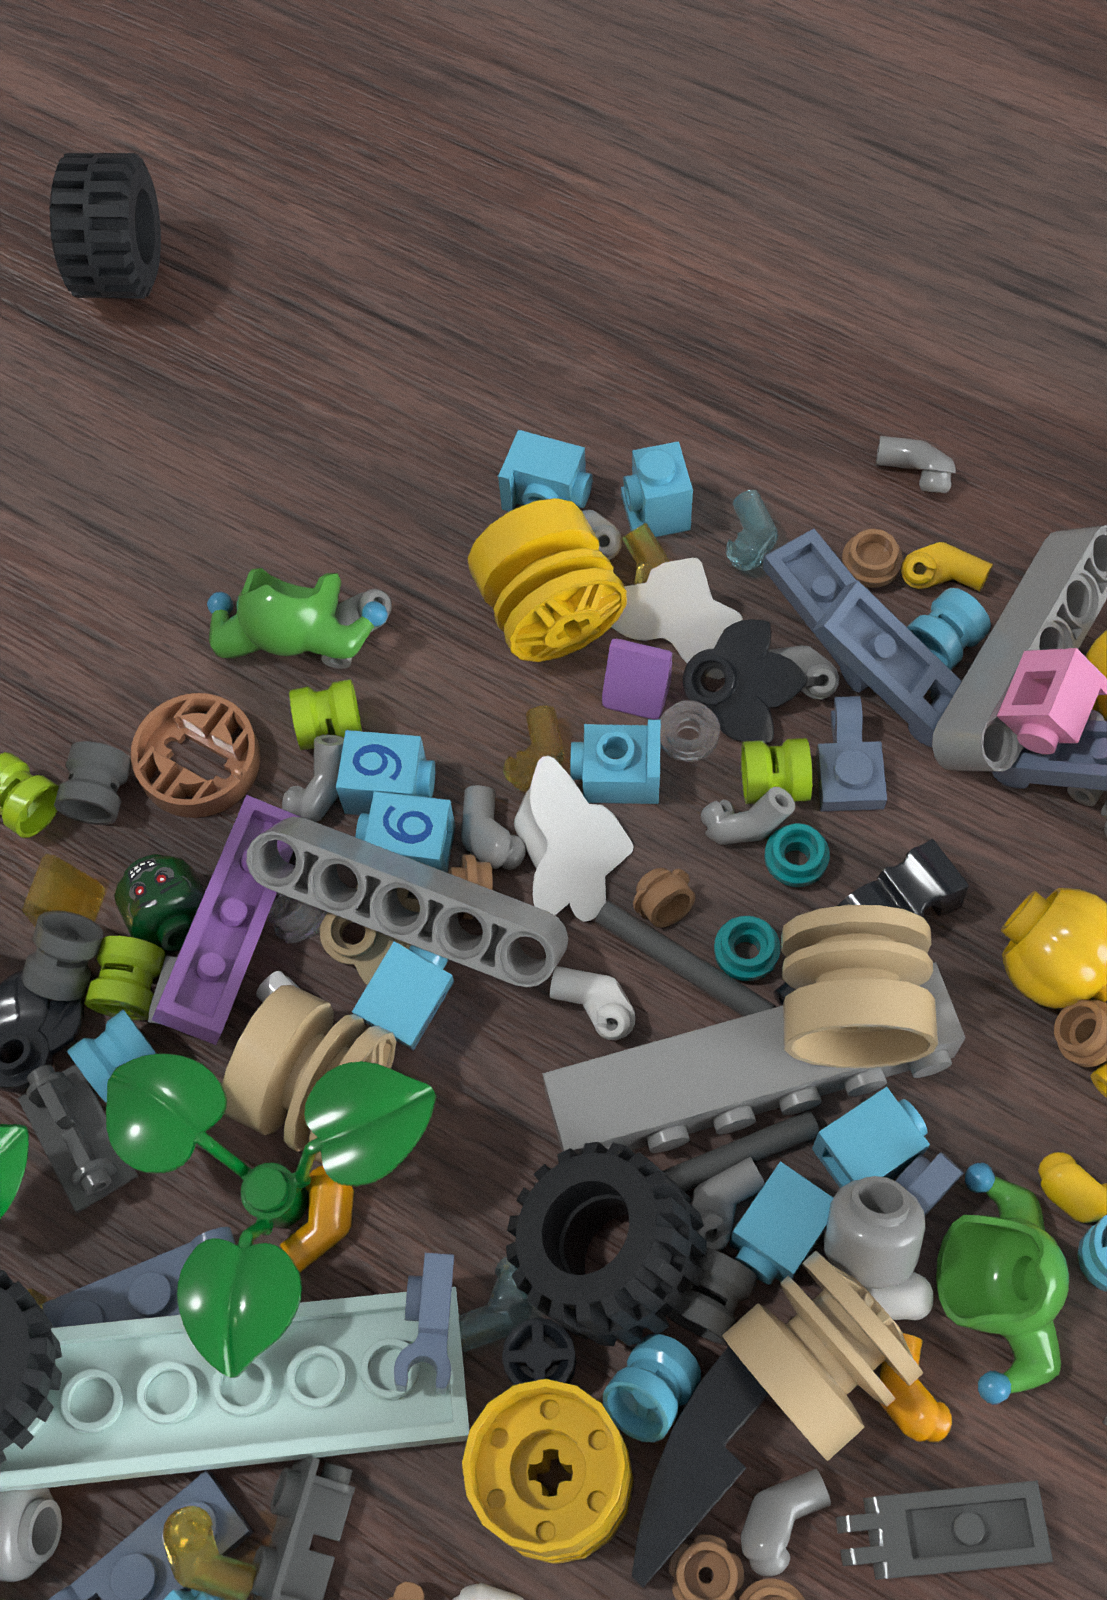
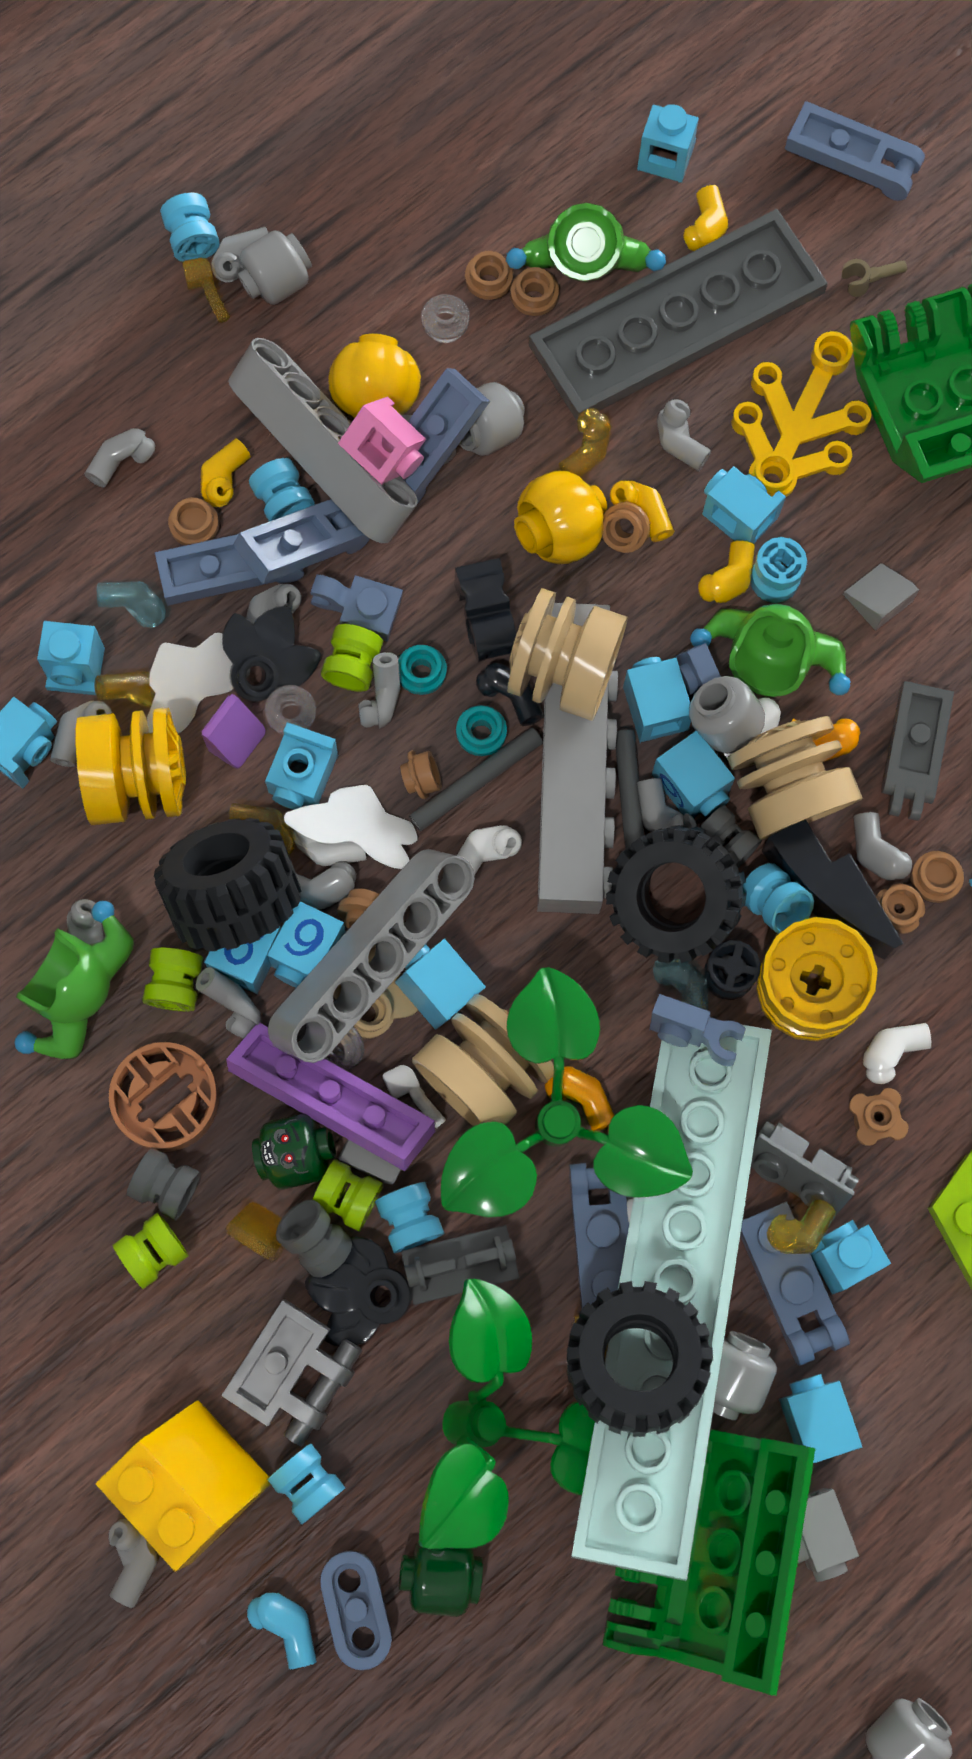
camera: 80 degrees left, 10 degrees up
(439, 719) = (228, 884): none -> black tyre

